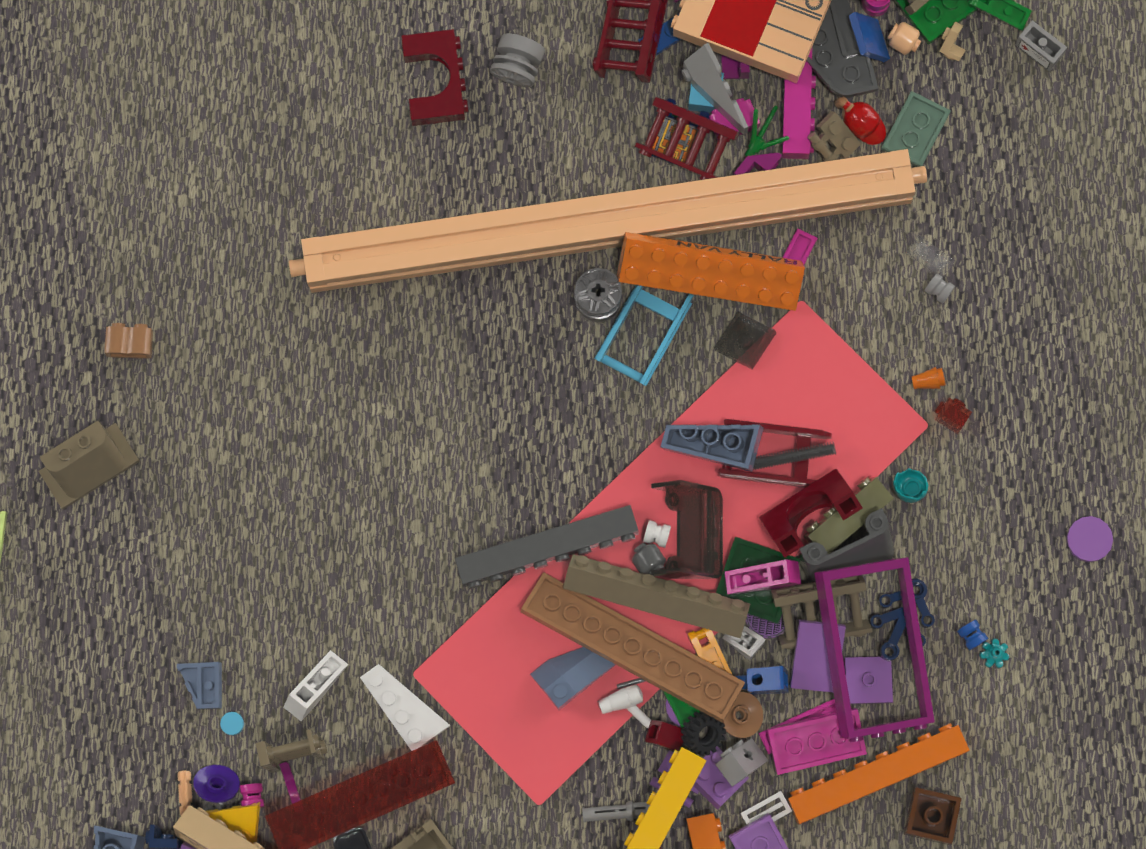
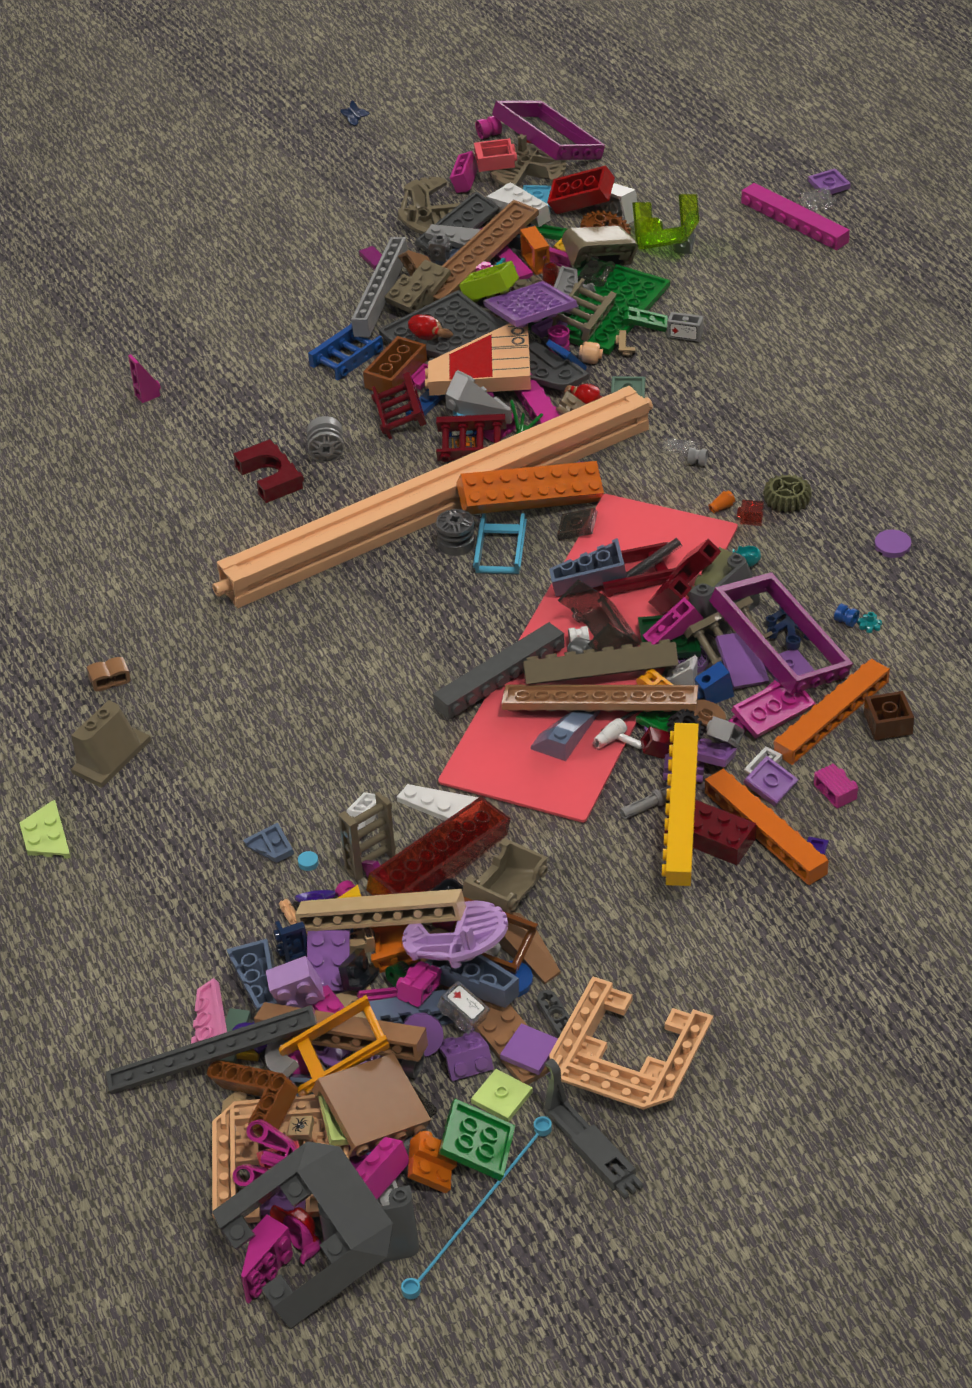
camera: 25 degrees left, 35 degrees down
(1010, 391) = (787, 493): none -> olive gear

